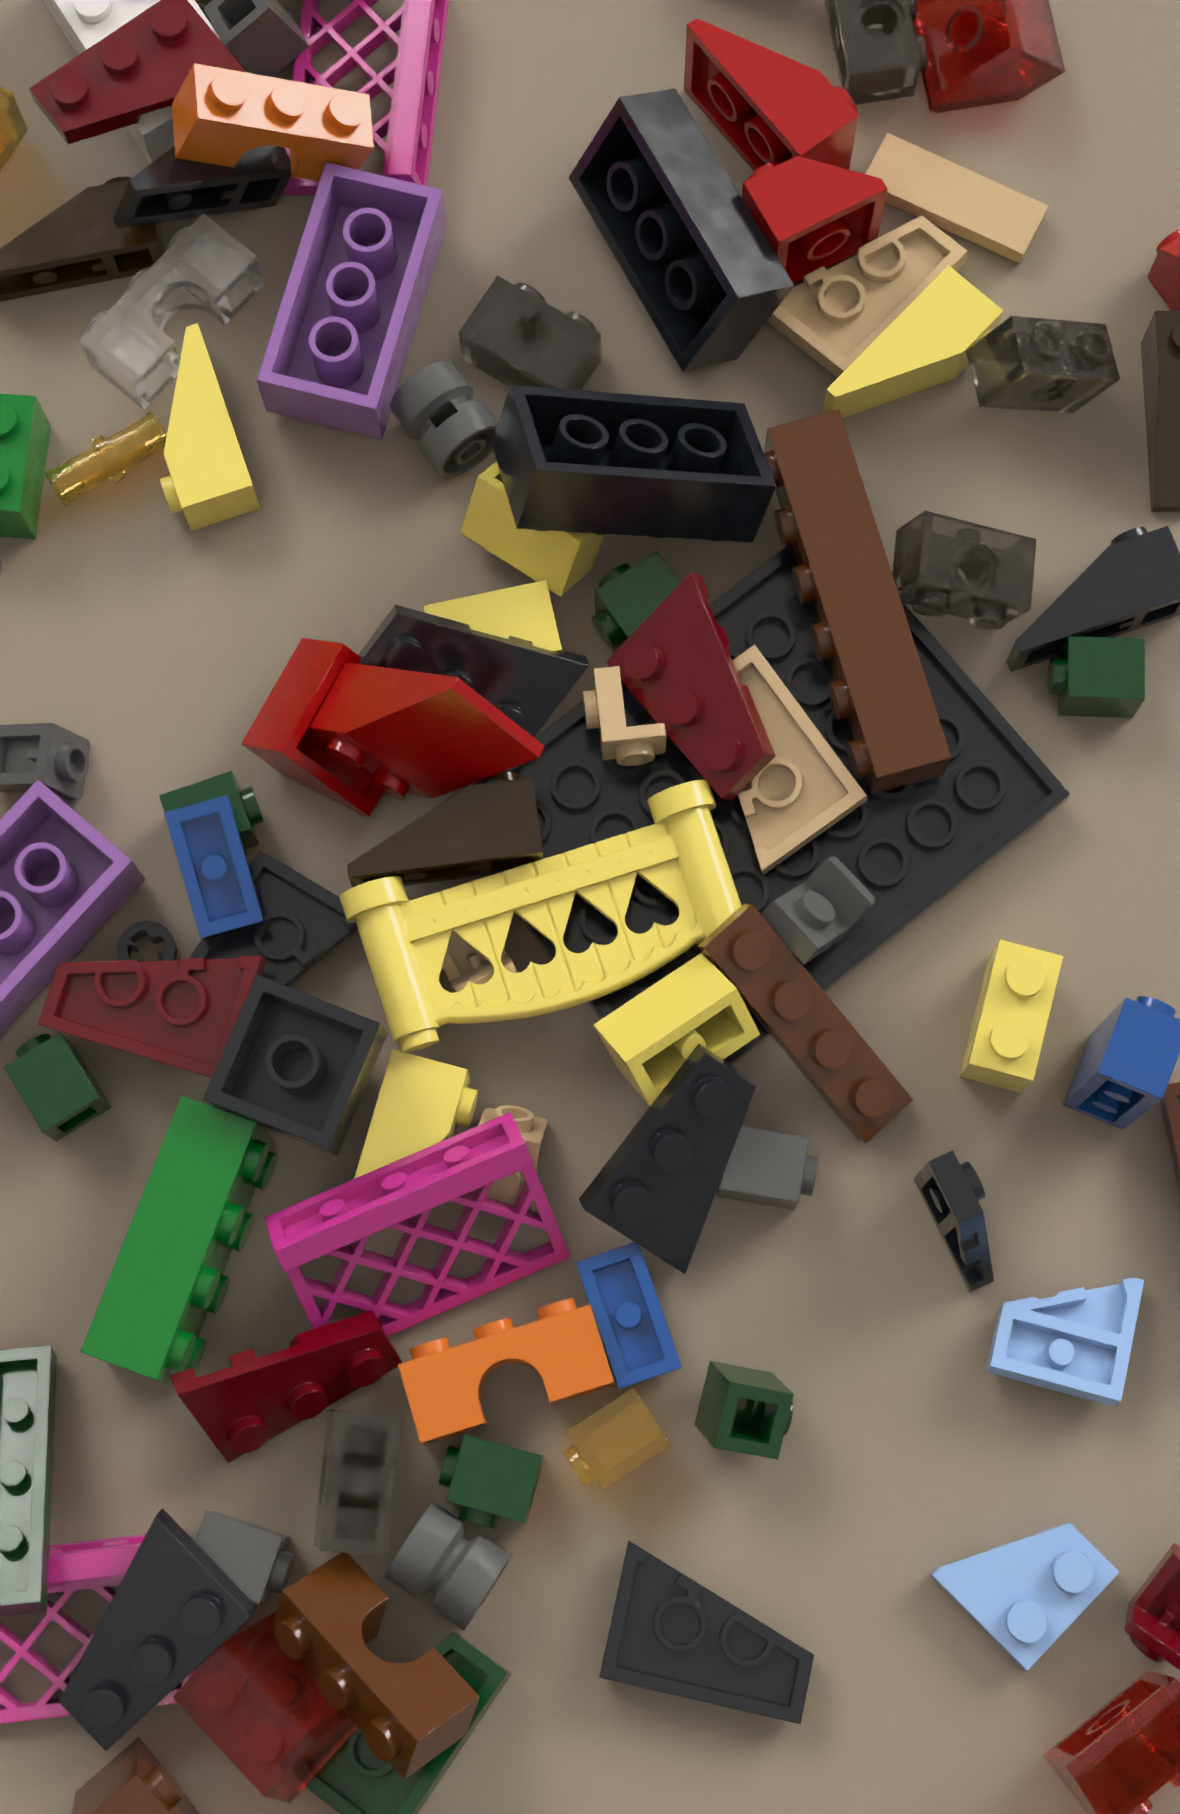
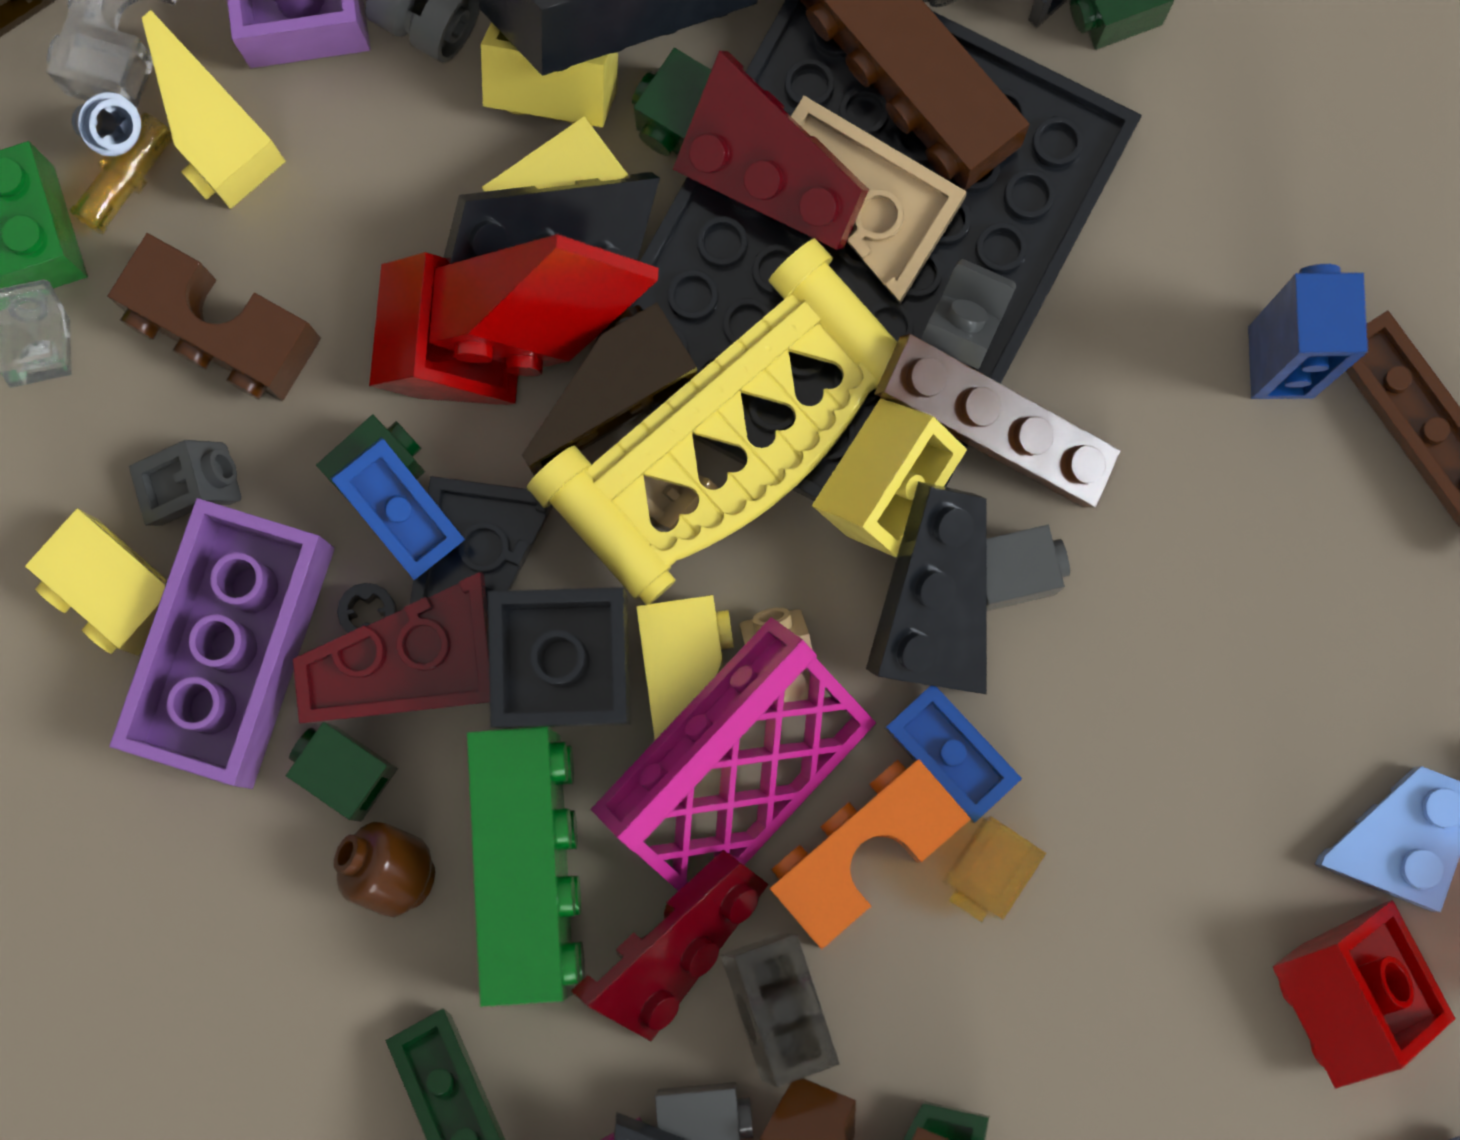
camera: 20 degrees left, 5 degrees up
(54, 1192) = (384, 869): none -> reddish brown head
(123, 416) = (119, 123): none -> sand blue cone
(159, 666) = (166, 295): none -> reddish brown arch
(448, 1565) = (894, 1047): dark grey wheel -> none
(490, 1480) = (897, 954): dark green brick -> none
(606, 711) = (696, 215): tan bracket -> none
(699, 1646) = (1144, 1018): black wing -> none
(744, 1410) = (1096, 793): dark green brick -> none
(918, 1717) = (1364, 996): none -> red slope
(952, 1199) = (1205, 530): black wing -> none
(1011, 1016) = (1177, 338): light yellow brick -> none
(1069, 1341) = (1352, 605): light blue wing -> none

